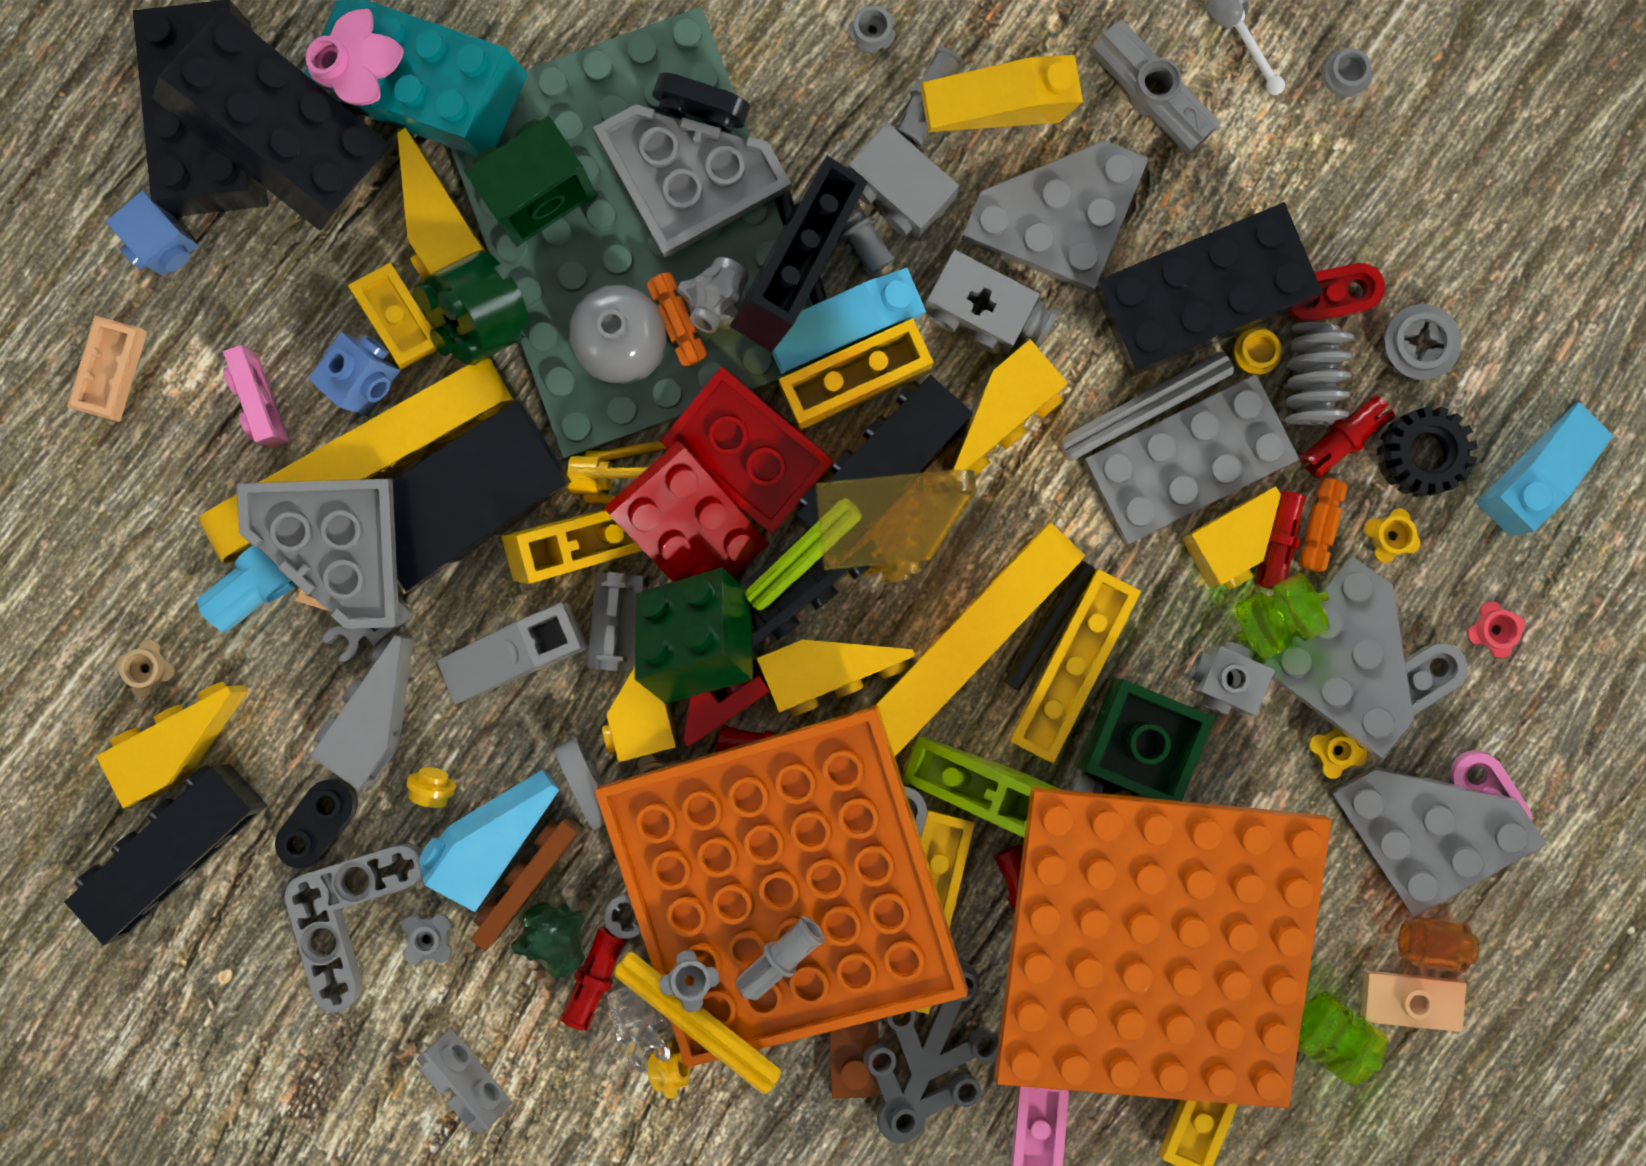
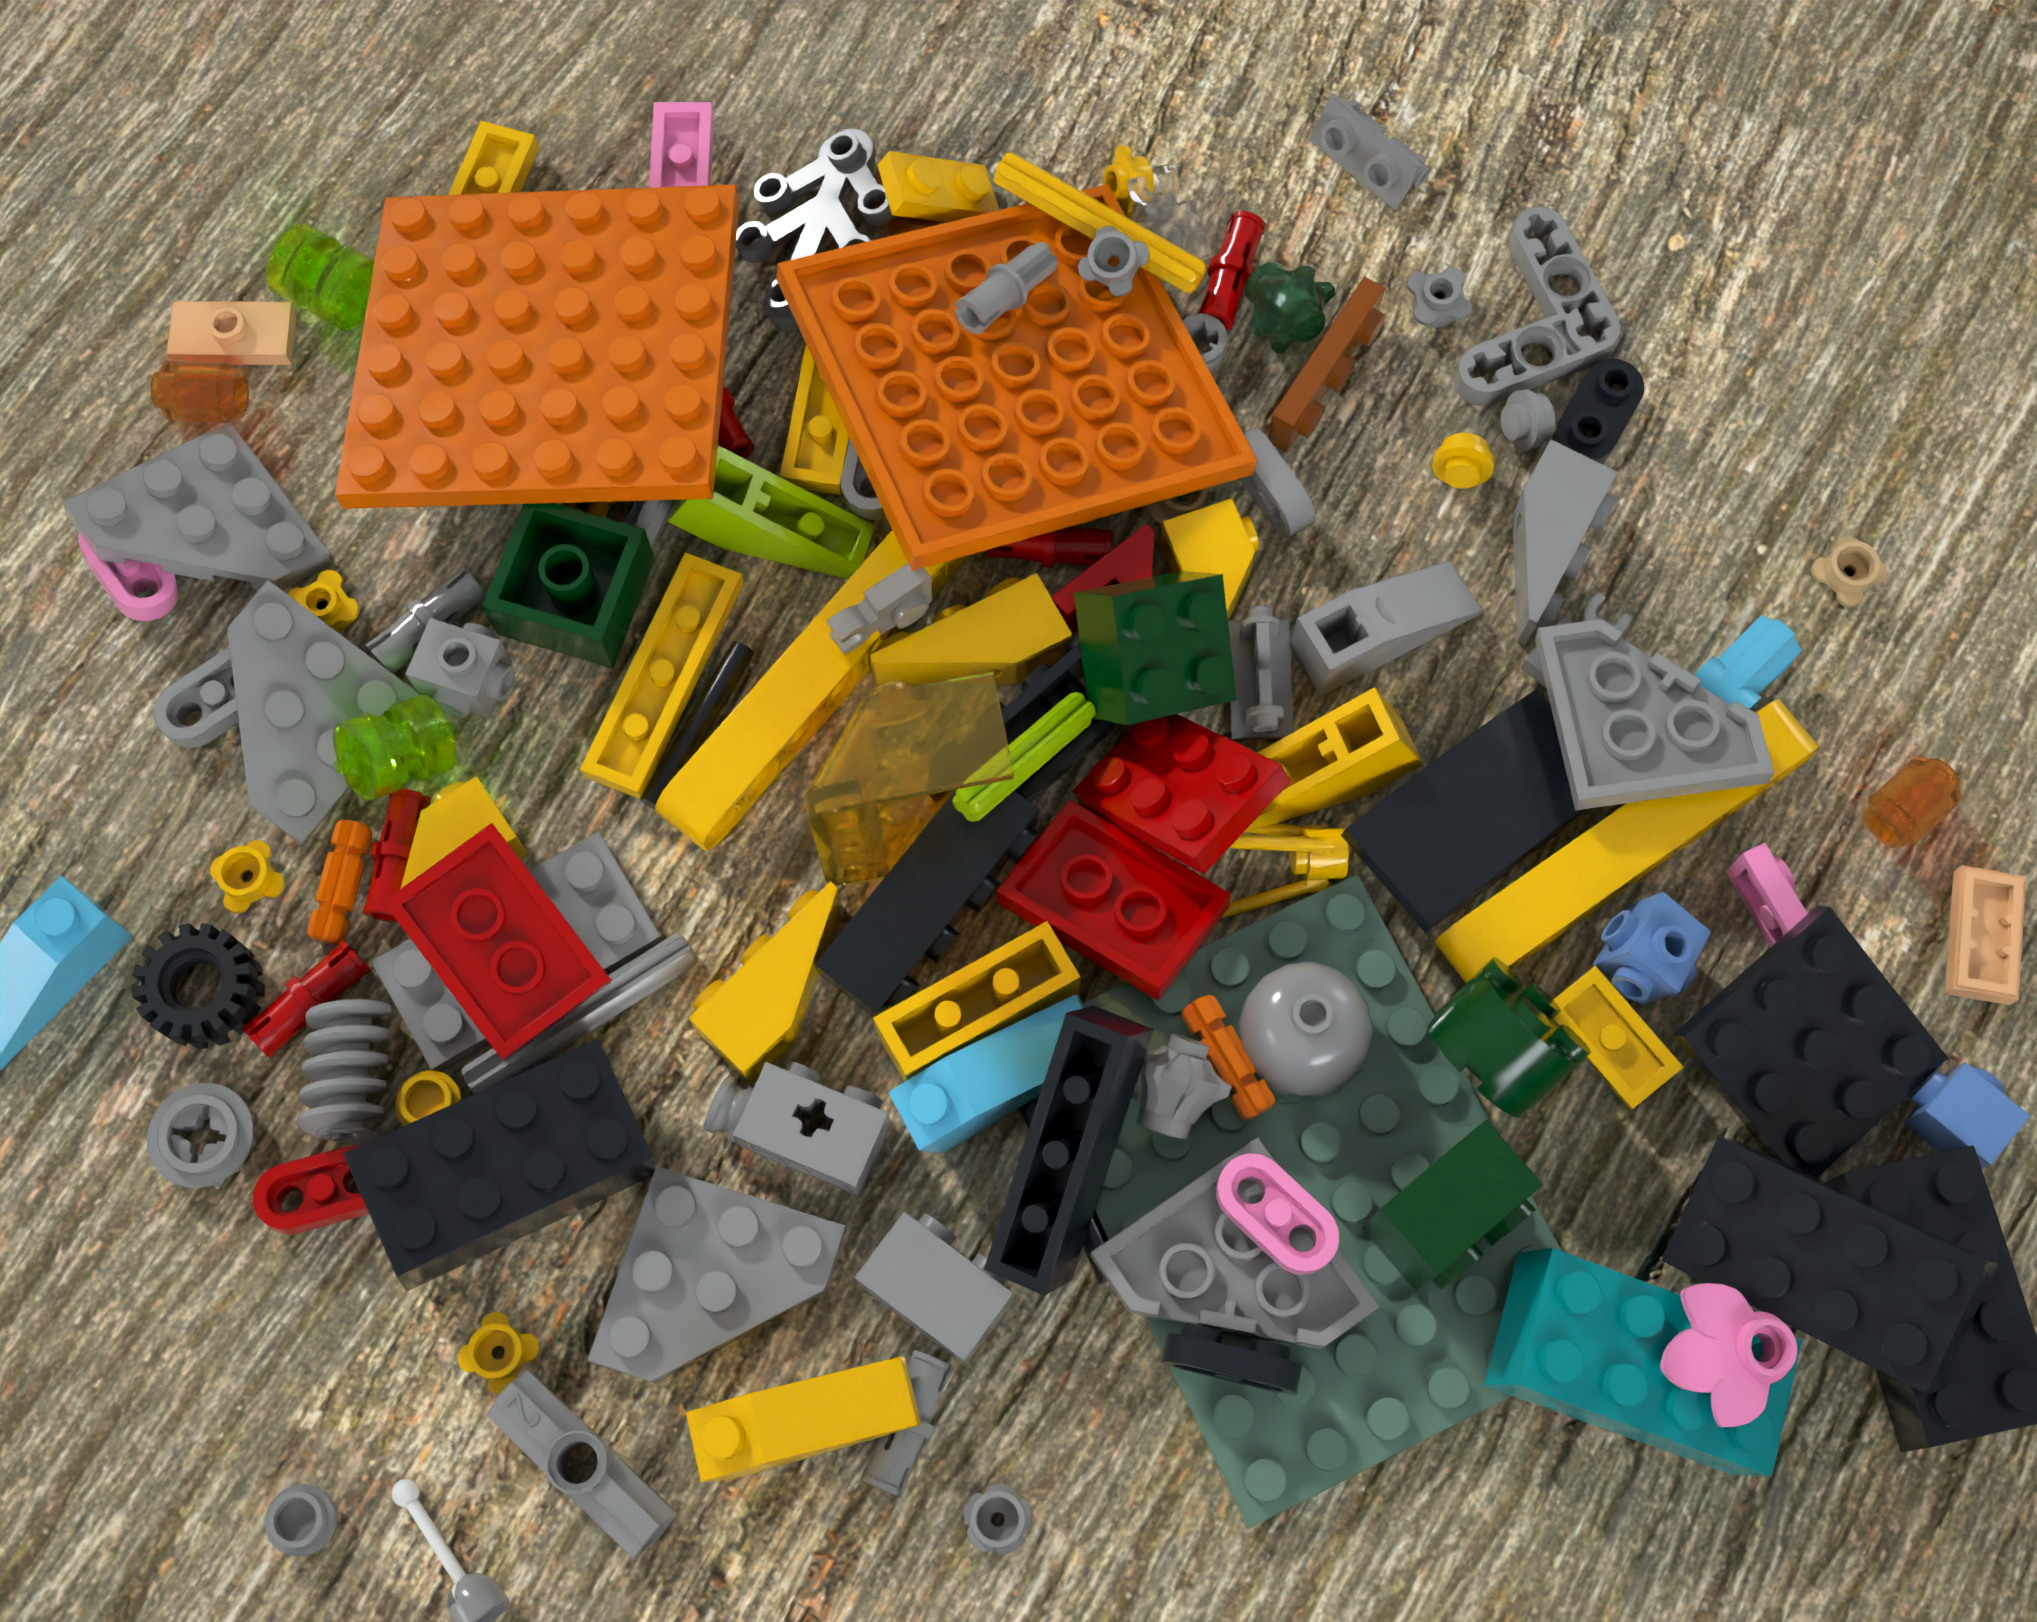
camera: 175 degrees right, 15 degrees down
(137, 473) = (1912, 802): none -> clear orange brick
(165, 853) = (1773, 359): black brick -> none
(167, 753) = (1810, 462): yellow slope -> none
(252, 291) = (1811, 1044): none -> black plate
(373, 819) = (1527, 419): none -> light grey plate
(431, 215) = (1582, 1175): yellow slope -> none
(482, 843) = (1385, 403): medium azure slope -> none
(657, 191) = (1279, 1212): none -> bright pink plate
(827, 1071) = (935, 187): none -> yellow plate
(867, 243) = (974, 1198): light grey pin -> none
(890, 690) = (889, 603): none -> light grey plate
(1207, 450) = (497, 942): none -> red plate
(1210, 157) = (496, 1332): none -> yellow plate
(1256, 729) = (445, 604): none -> light grey pin
(1510, 627) = (99, 758): coral plate -> none

